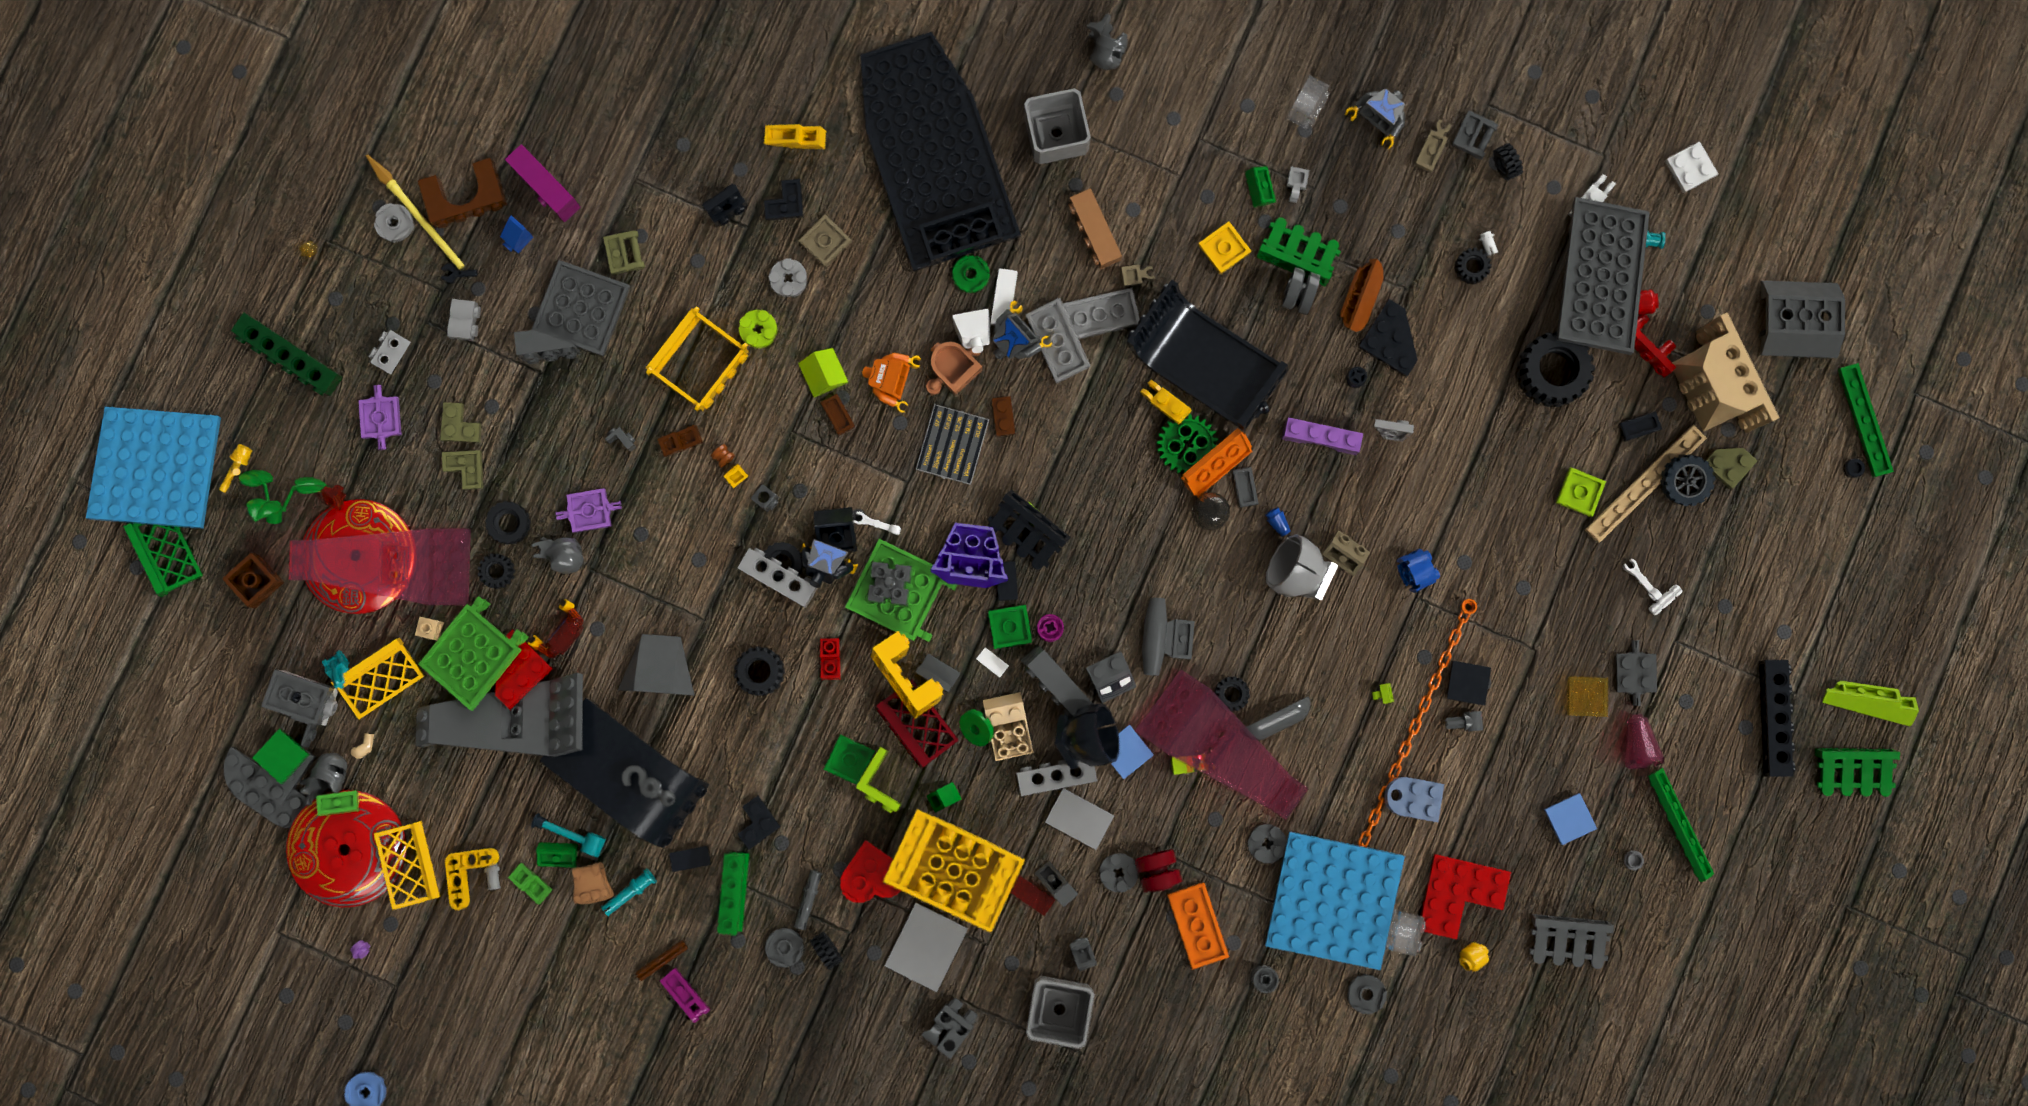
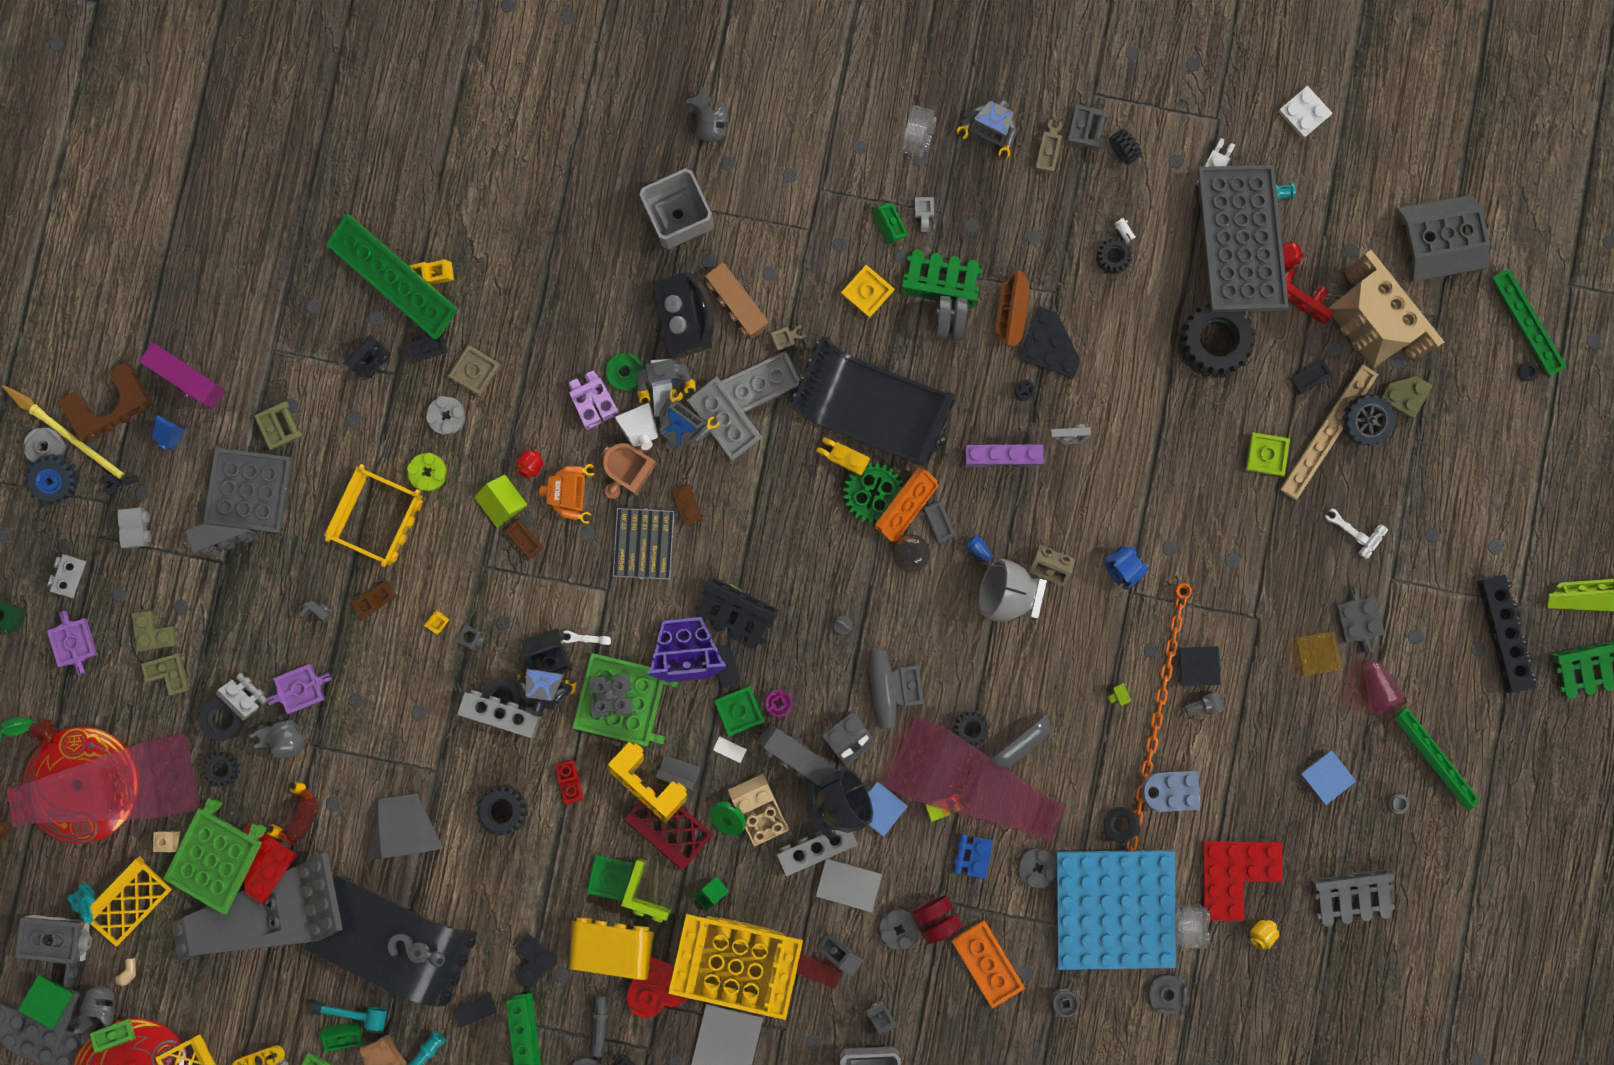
camera: 10 degrees left, 0 degrees up
(395, 255) = (51, 479): none -> black wheel
(528, 508) = (238, 700): none -> light grey plate
(722, 455) = (419, 605): dark orange wheel -> none
(766, 132) = (392, 276): none -> green plate
(835, 827) = (610, 949): none -> yellow windscreen
(858, 342) = (529, 463): none -> red head
(933, 153) = (561, 261): black wing -> none
(934, 288) = (589, 394): none -> lavender hips
(1007, 282) = (663, 373): none -> dark grey torso
(1041, 229) = (682, 314): none -> black piece
(1129, 566) = (843, 625): none -> dark grey tile
(1211, 821) = (978, 858): none -> blue plate
(1349, 811) = (1109, 824): none -> black tyre

